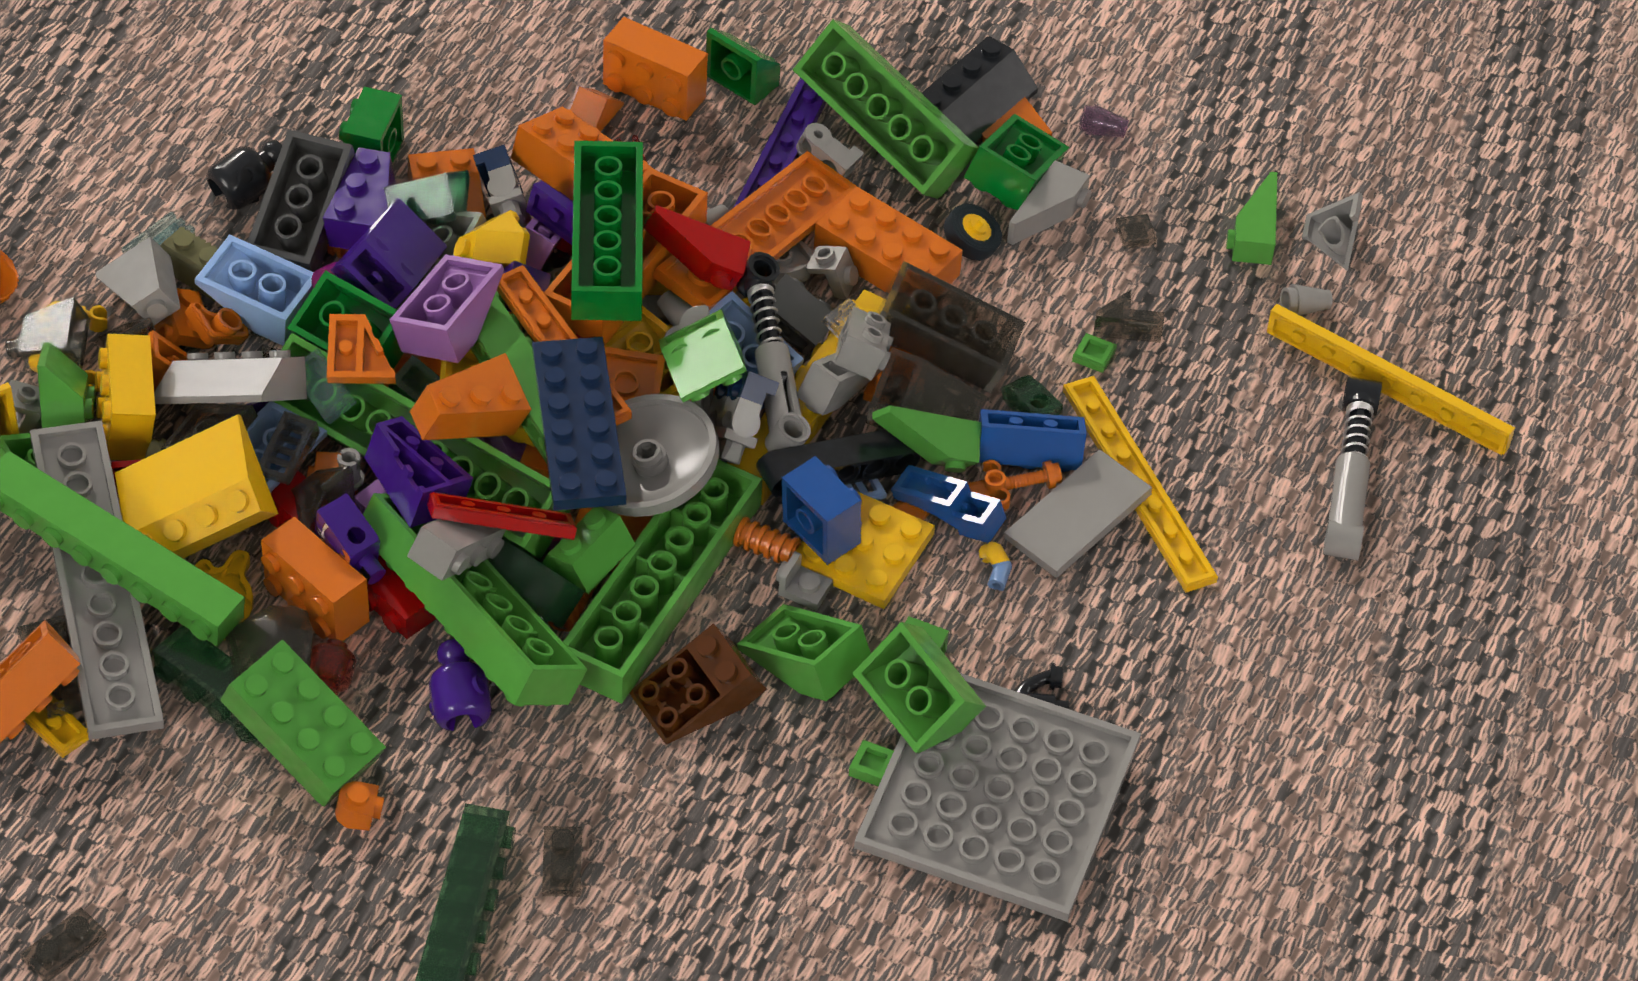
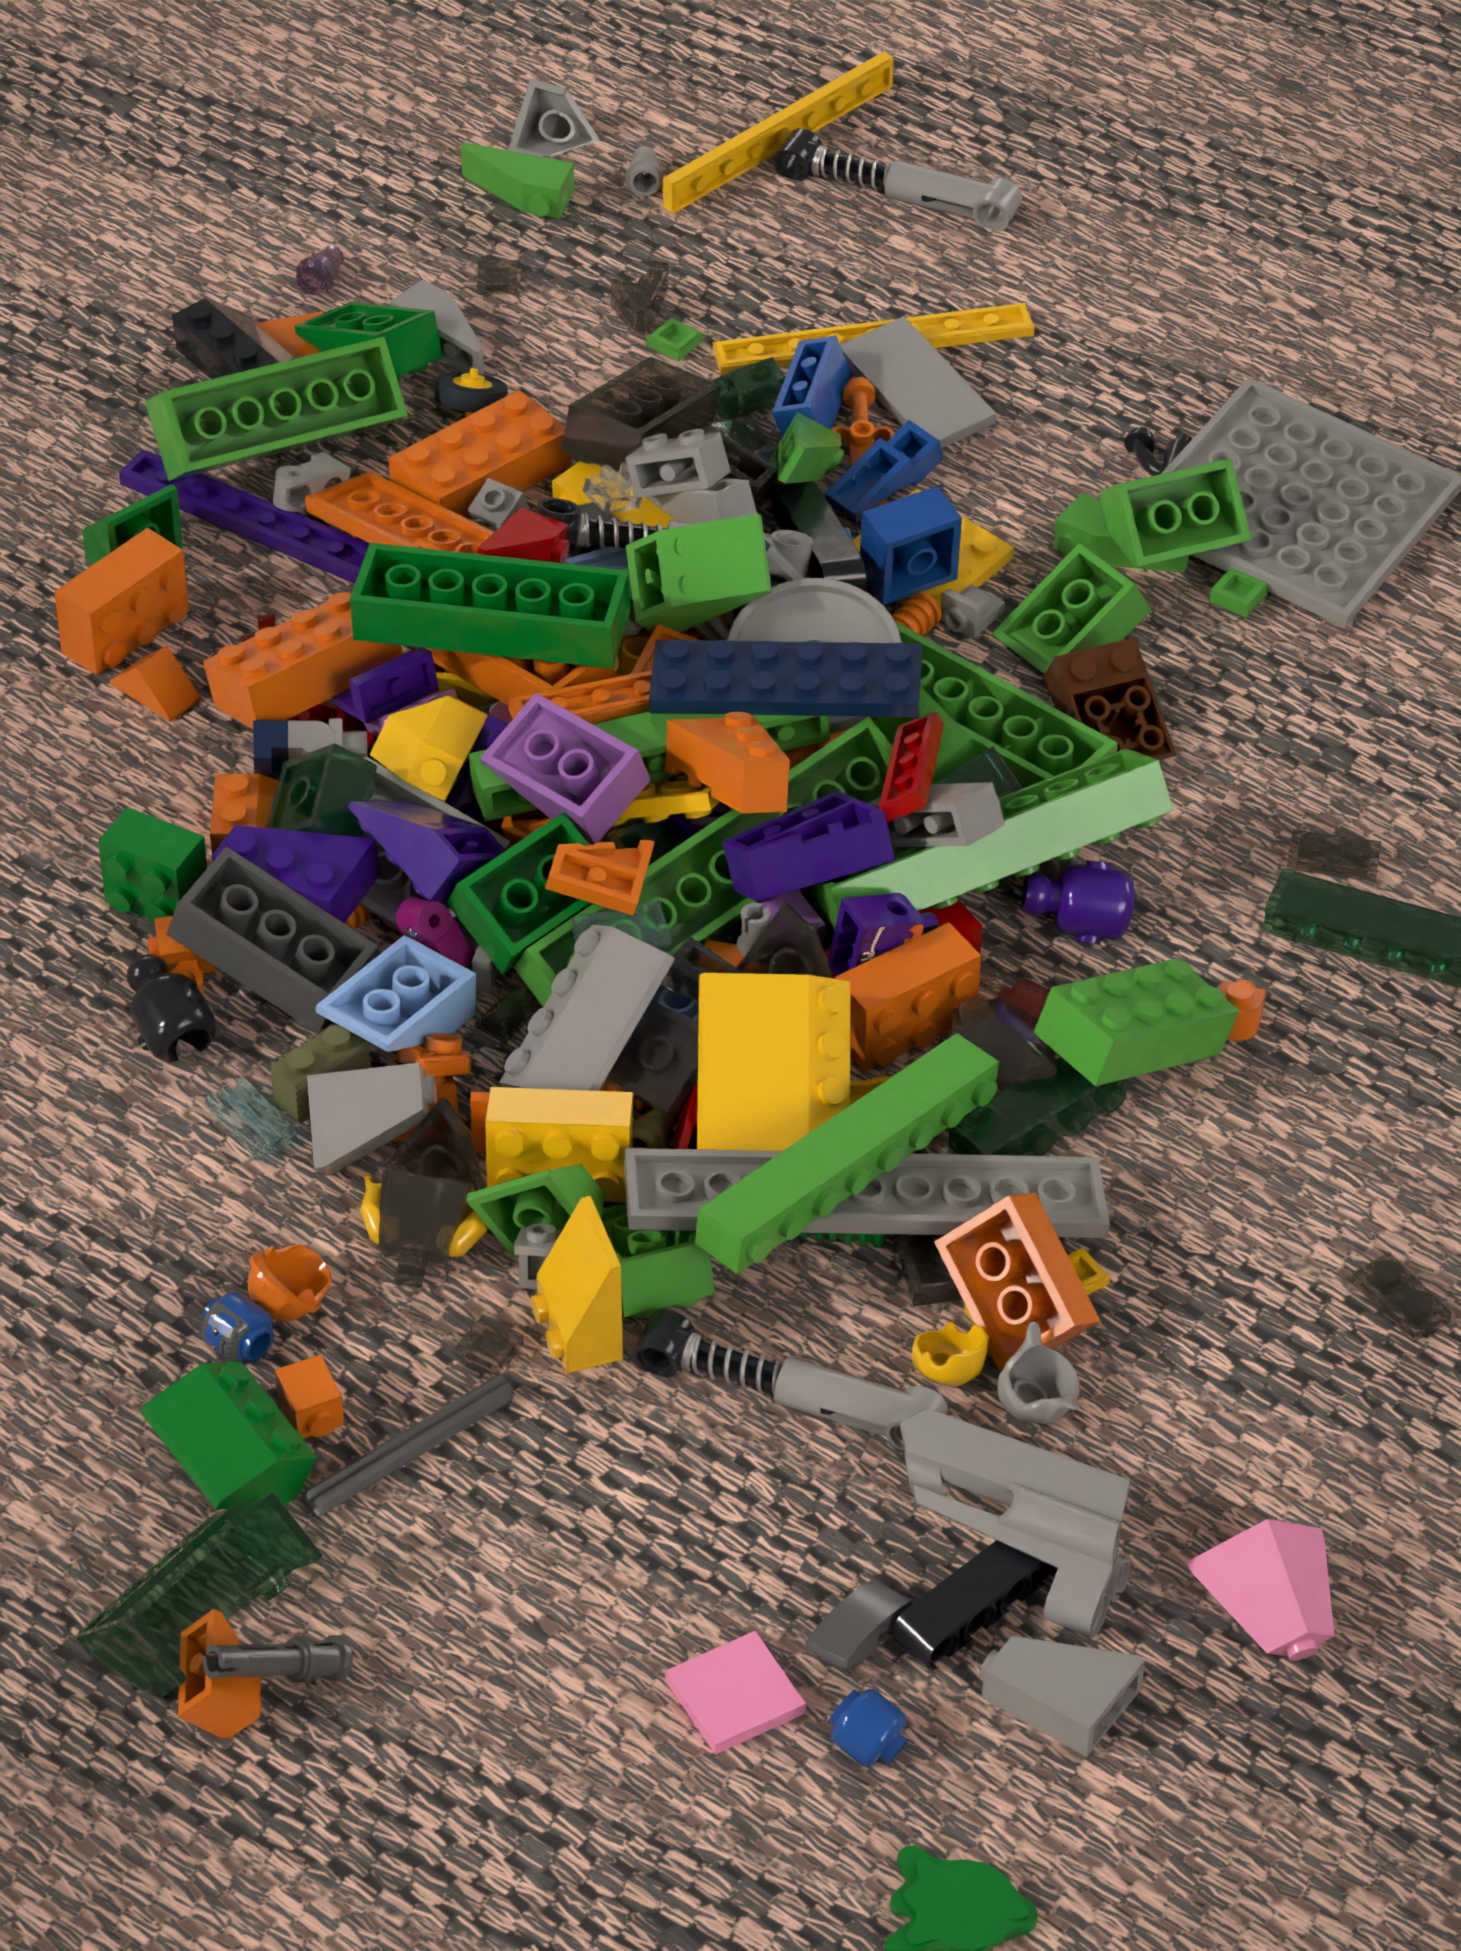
camera: 75 degrees left, 5 degrees down
(996, 555) = (974, 457): arm -> none

